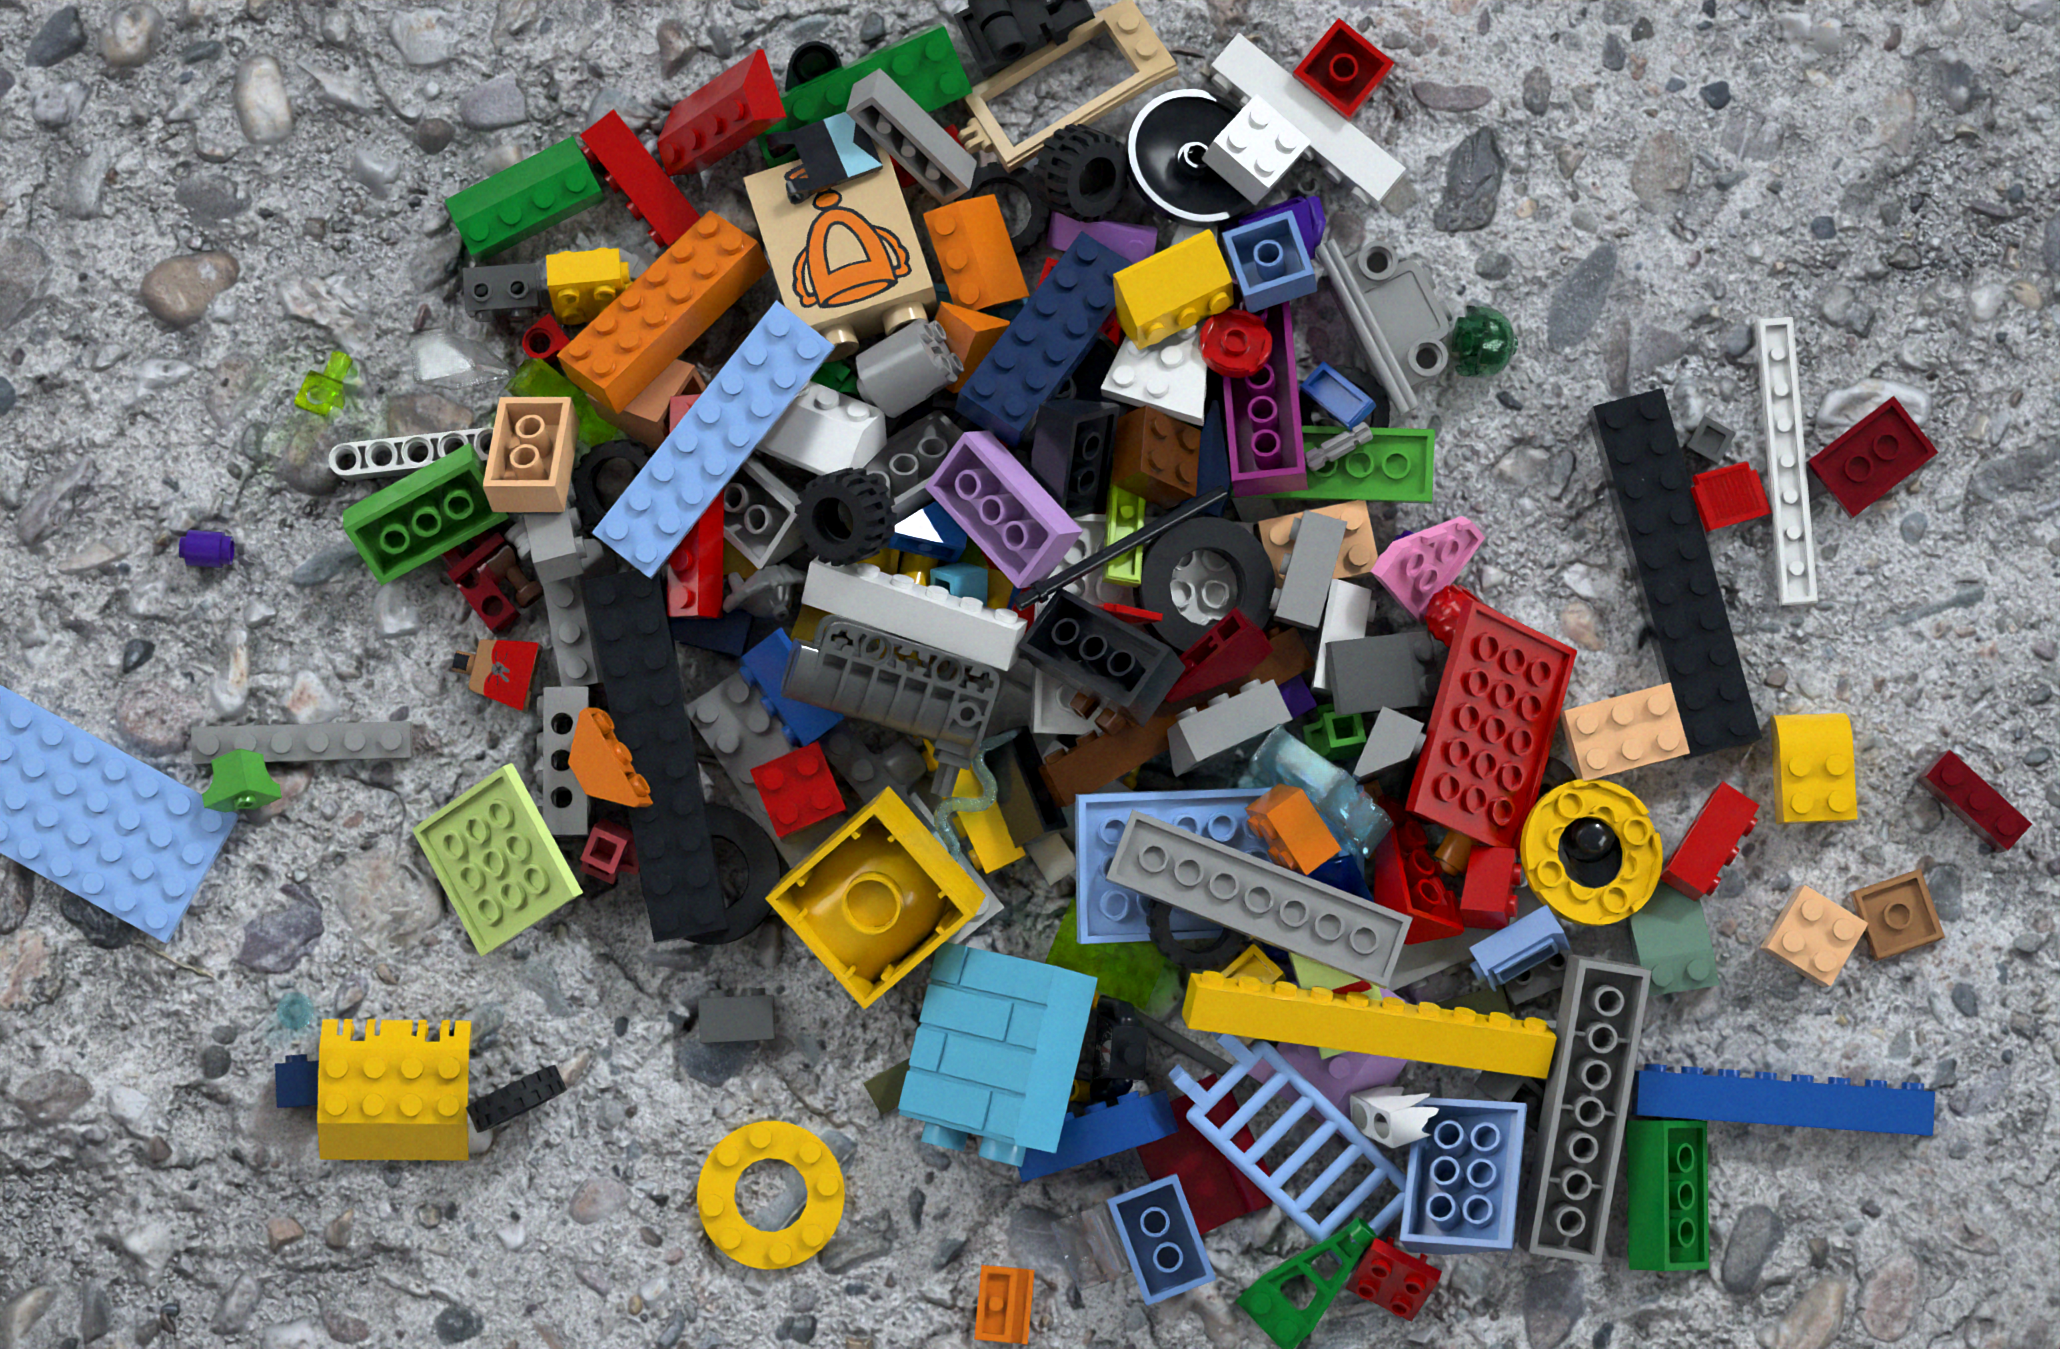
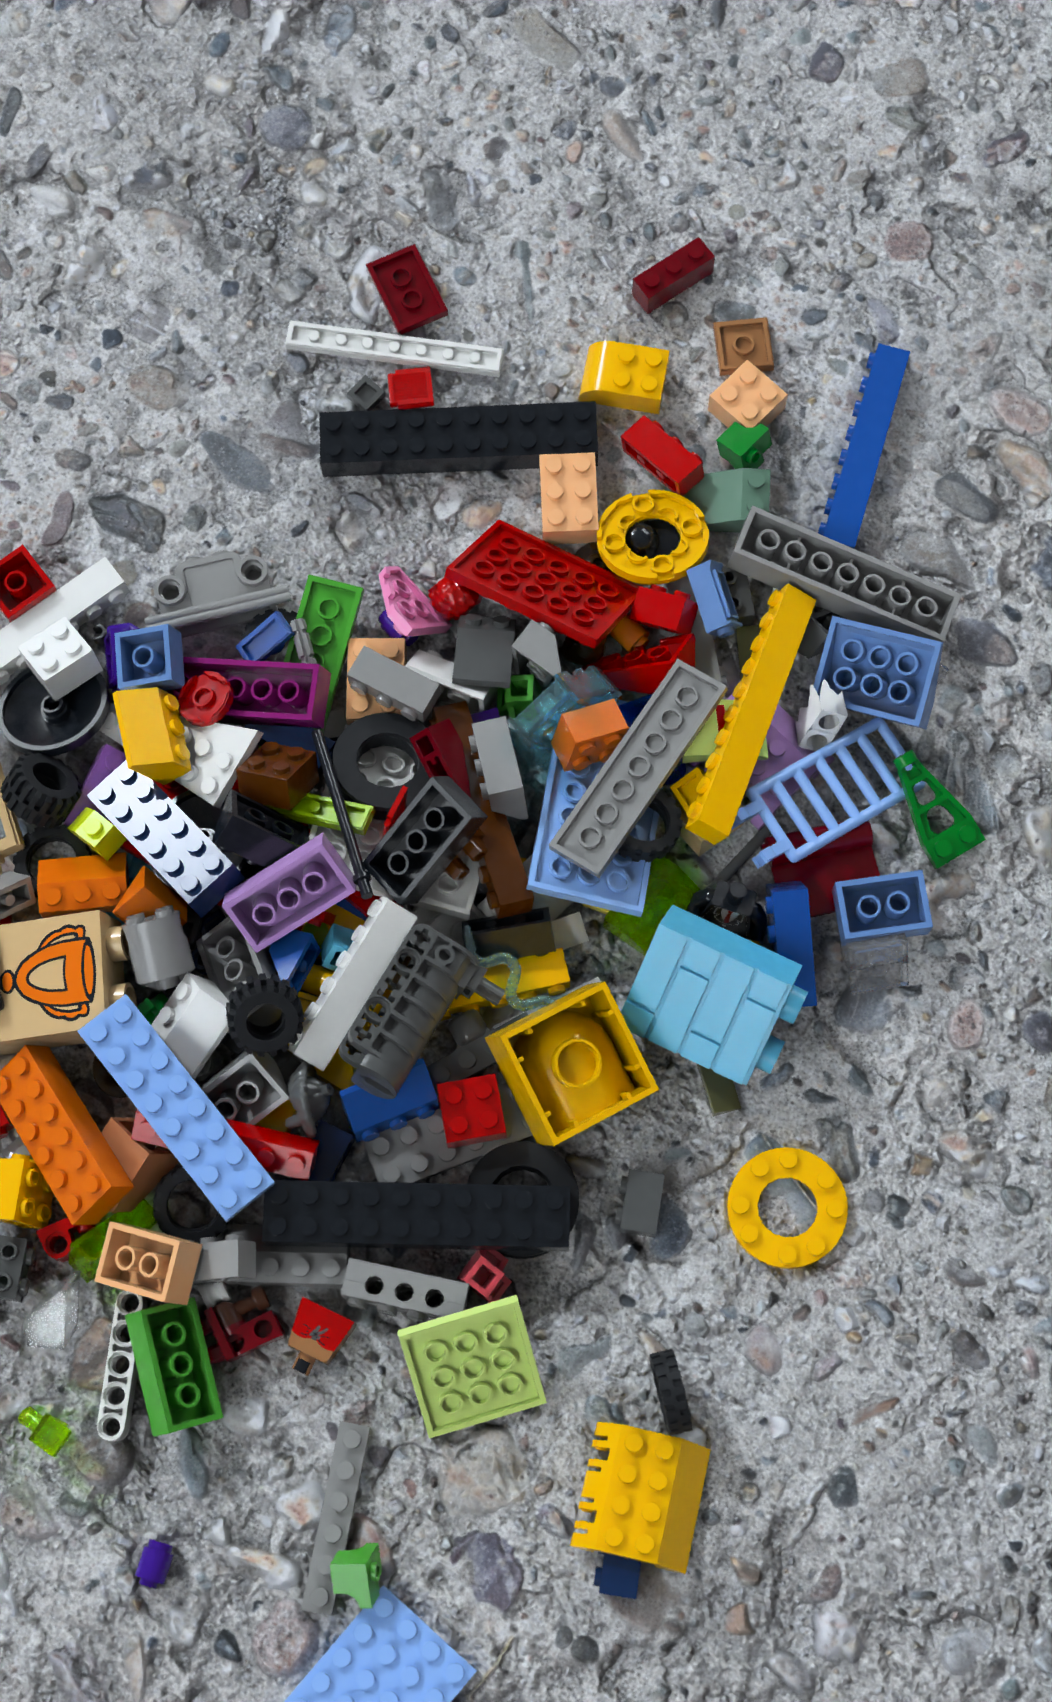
camera: 75 degrees left, 10 degrees down
(285, 1004) = (567, 1573): clear light blue plate -> none
(604, 763) = (417, 1252): orange slope -> none
(1004, 1304) = (908, 1042): orange plate -> none
(1041, 252) = (97, 833): none -> neon yellow slope
(1393, 1279) = (944, 745): red plate -> none
(1483, 342) = (251, 532): clear green cylinder -> none
(1667, 1195) = (918, 543): green slope -> none
(1746, 945) = (744, 446): none -> green brick

